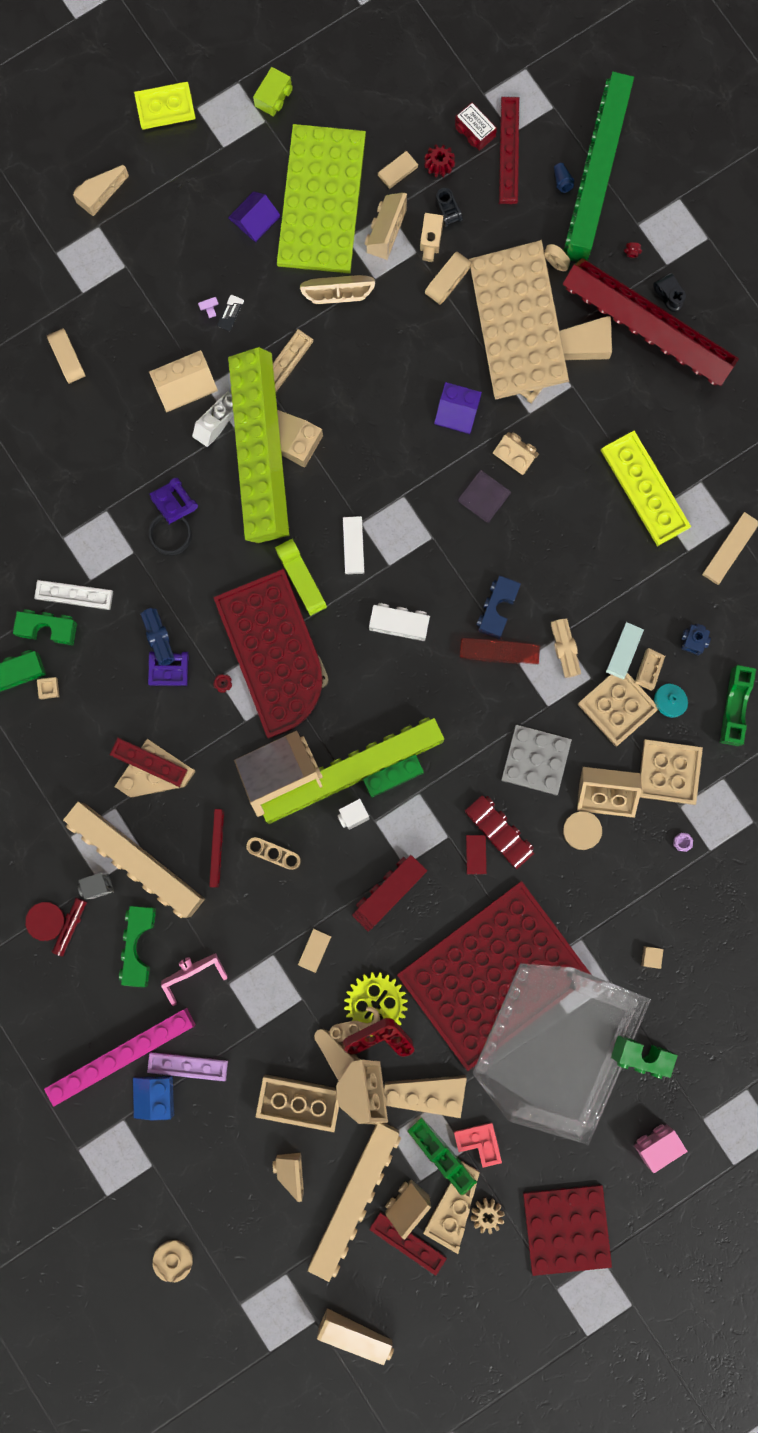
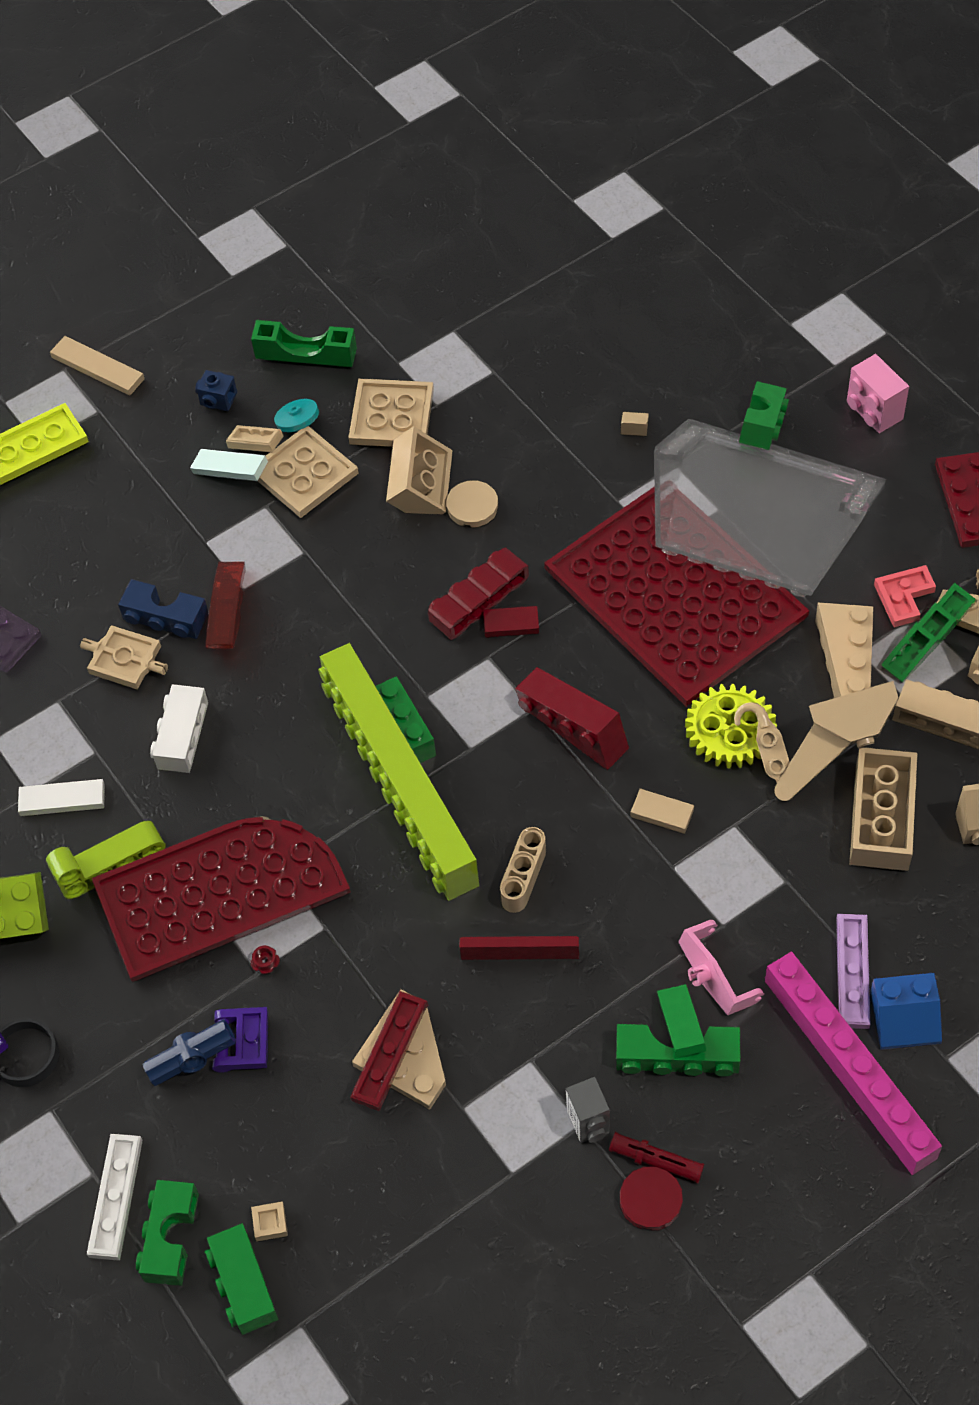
camera: 90 degrees left, 25 degrees down
(135, 860) = (542, 1058): tan brick -> none
(153, 950) = (681, 1021): none -> green tile
(277, 769) = (400, 854): flat silver panel -> none
(353, 815) = (460, 753): white brick -> none
(382, 1030) = (769, 693): dark red beam -> none
(461, 581) = (124, 657): none -> tan plate
(536, 760) = (377, 560): light grey plate -> none
(565, 648) = (223, 531): tan piece -> none
(683, 842) = (482, 396): lavender tile -> none

